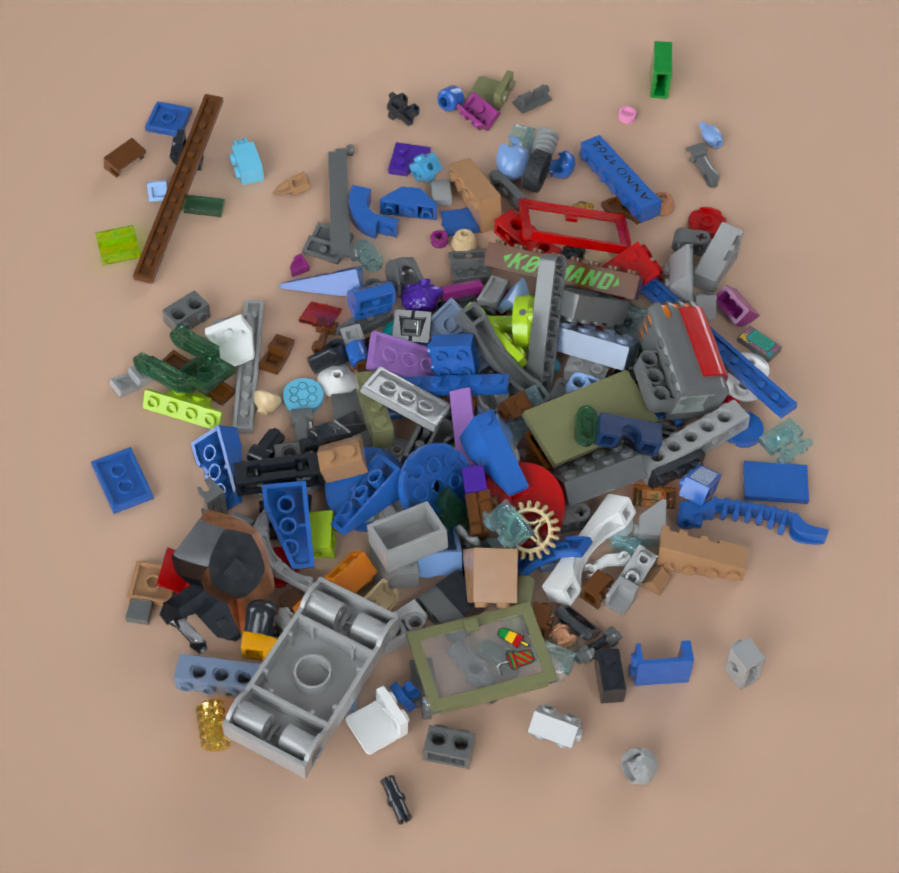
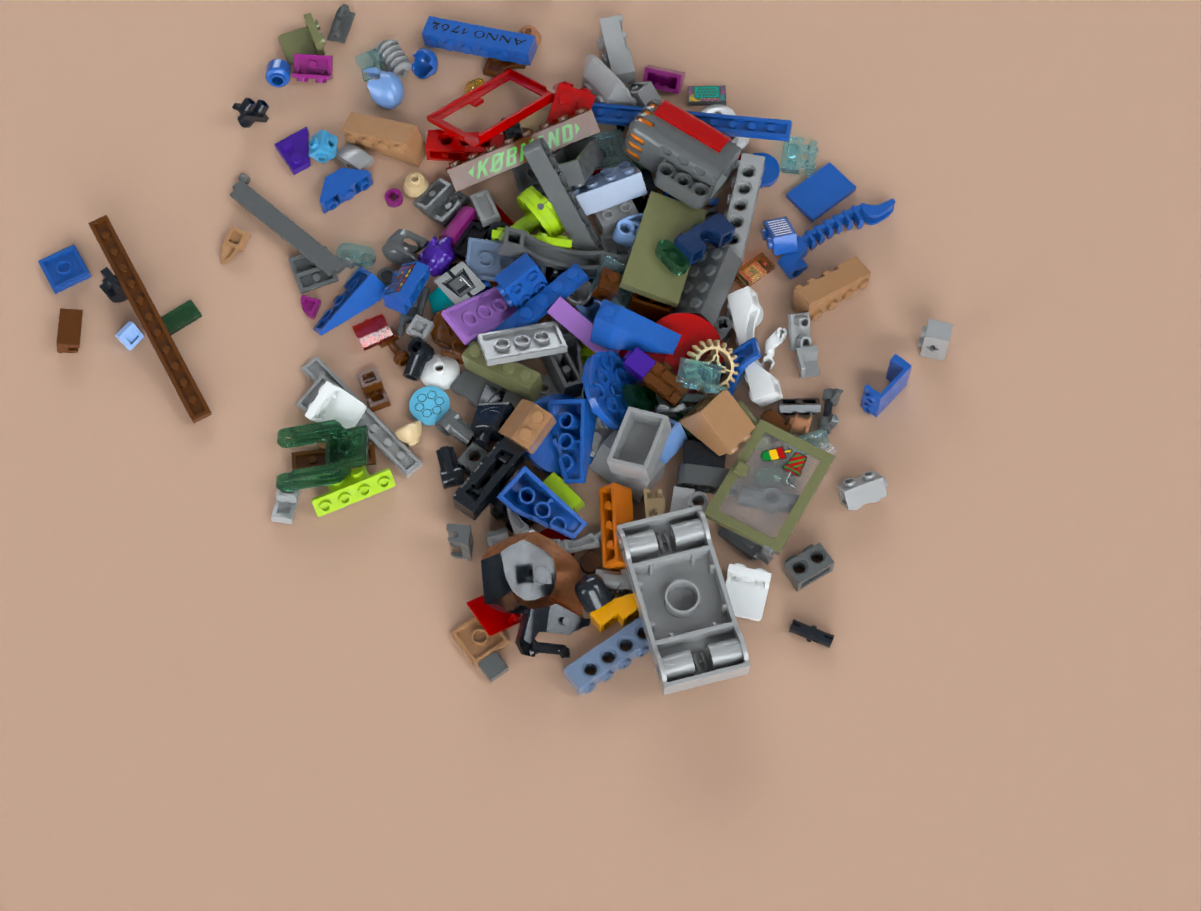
camera: 40 degrees left, 10 degrees up
(118, 245) = (147, 406): clear neon green slope -> none
(122, 480) = (367, 584): blue tile -> none
(186, 312) = (265, 415): dark grey brick -> none
(210, 719) = (639, 697): clear yellow piece -> none
(216, 454) = (427, 505): blue wedge -> none
(247, 162) = (173, 253): medium azure brick -> none
(356, 352) = (440, 338): blue brick -> none
(365, 219) = (321, 226): blue arch -> none
(405, 694) = (744, 557): blue tile -> none
(458, 219) = (392, 172): blue piece -> none
(506, 188) = (406, 115): dark grey hinge -> none
(518, 289) = (504, 198): light blue slope -> none
(536, 170) = (414, 83): black tyre -> none
(596, 588) = (787, 370): reddish brown brick -> none
(610, 675) = (859, 424): black brick -> none
(625, 543) = (773, 322): clear light blue cone -> none
(639, 765) = (940, 468): light grey piece -> none
(650, 524) = (777, 293): light grey slope -> none
(656, 580) = (817, 330): medium nougat slope -> none
(675, 469) = (752, 238): black plate -> none
(688, 236) = (576, 52): dark grey piece -> none
(706, 219) = (574, 27): red tile -> none

